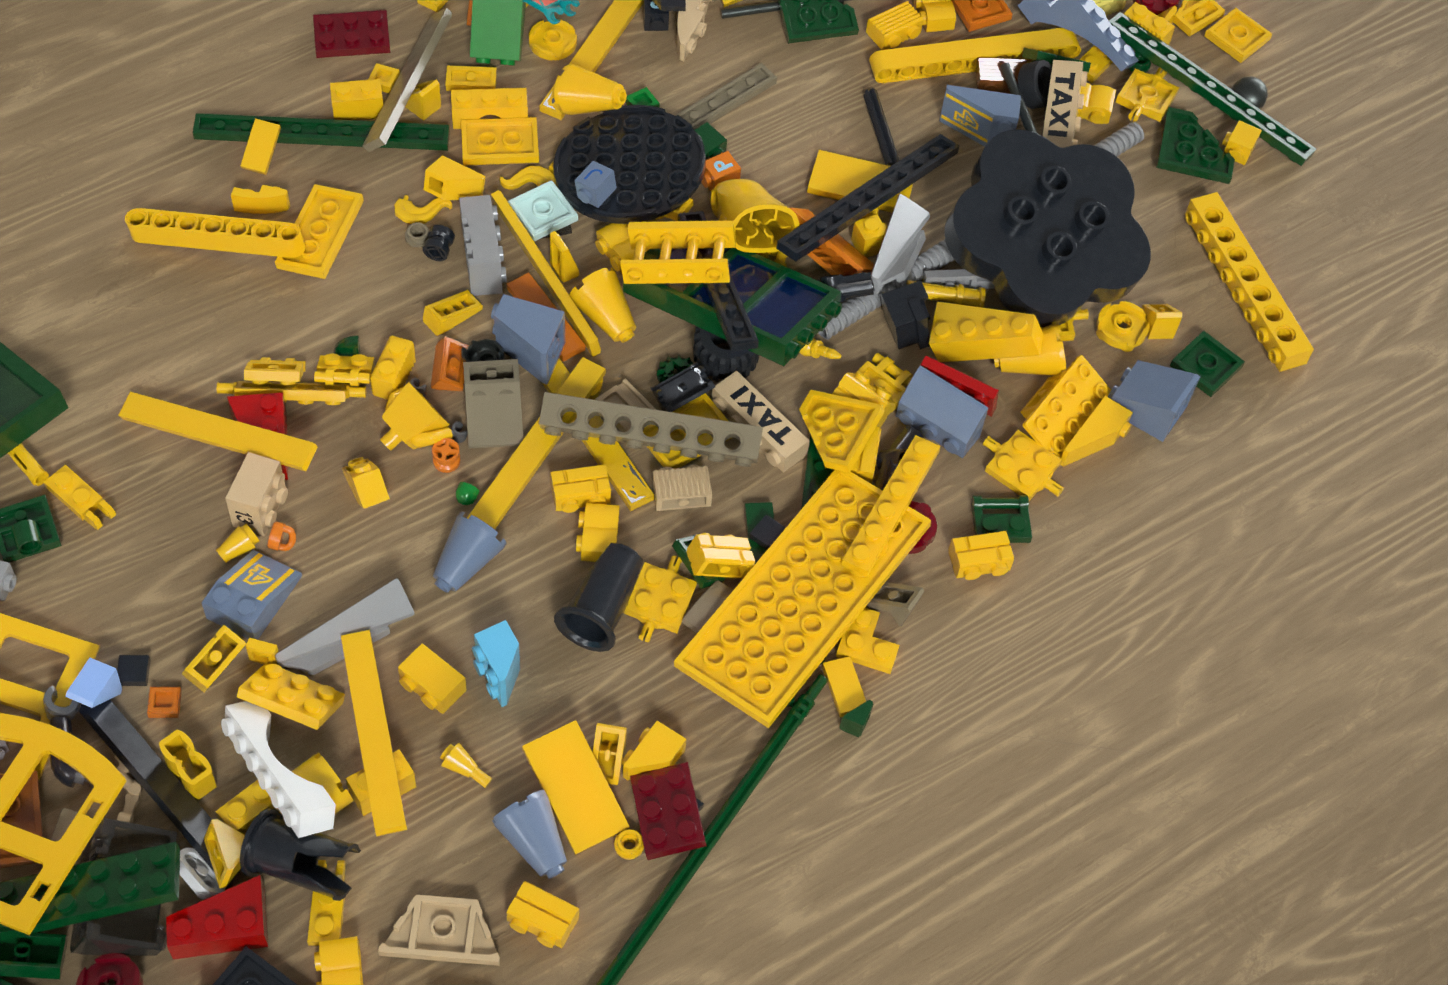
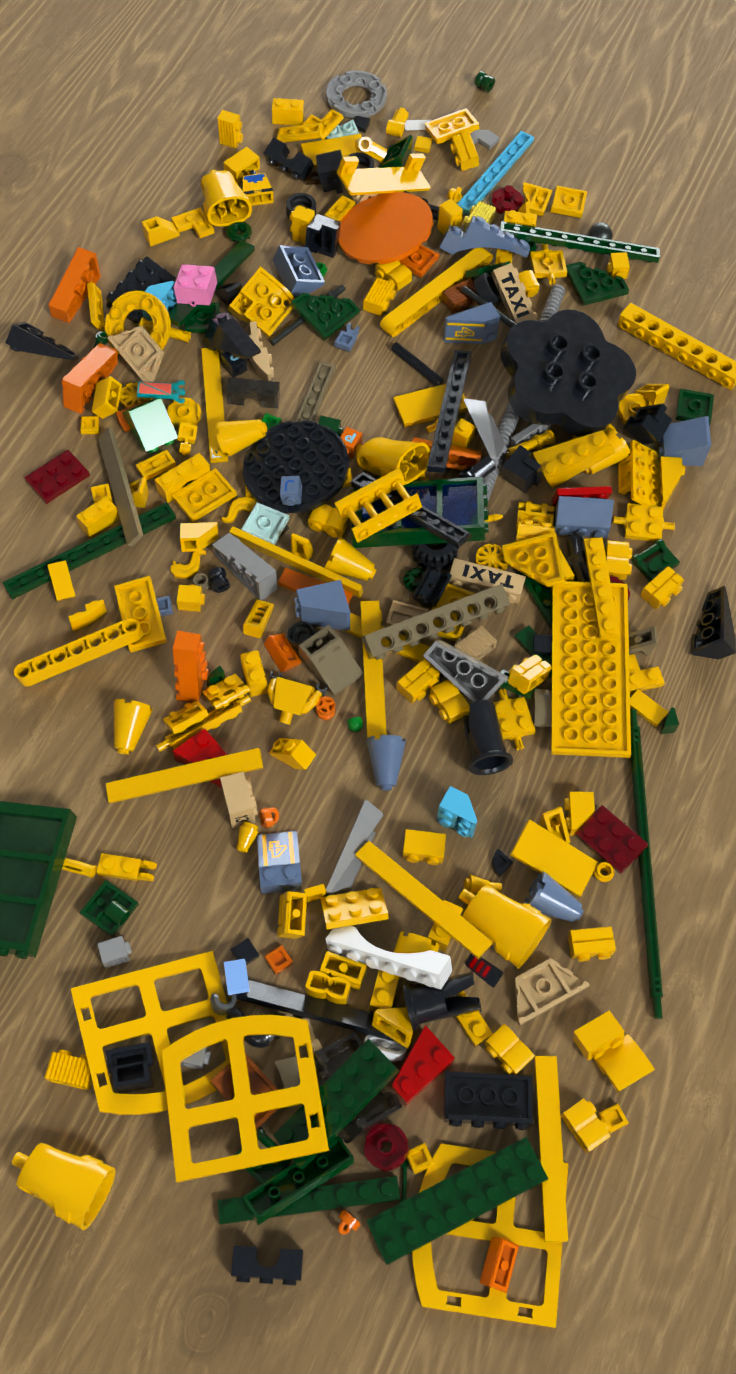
camera: 30 degrees left, 5 degrees up
(206, 342) = (129, 724): none -> yellow cone
(226, 762) = (343, 967): none -> yellow brick
(316, 311) = (189, 666): none -> orange wedge
(356, 239) = (165, 605): none -> sand blue tile
(389, 244) = (190, 598): none -> yellow brick
(392, 865) = (484, 970): none -> black sticker
(454, 831) = (507, 923): none -> yellow torso
(511, 756) = (501, 863): none -> black tile
(534, 63) = (186, 434): none -> yellow plate
(639, 506) = (465, 672): none -> light grey wedge
(665, 64) = (265, 391): none -> clear smoke arch
(786, 400) = (491, 559): none -> yellow wheel
(816, 55) = (347, 339): none -> sand blue plate
(949, 489) = (618, 558): none -> yellow brick
(1013, 644) = (715, 630): none -> black wedge
(1119, 348) = (648, 424): none -> black plate

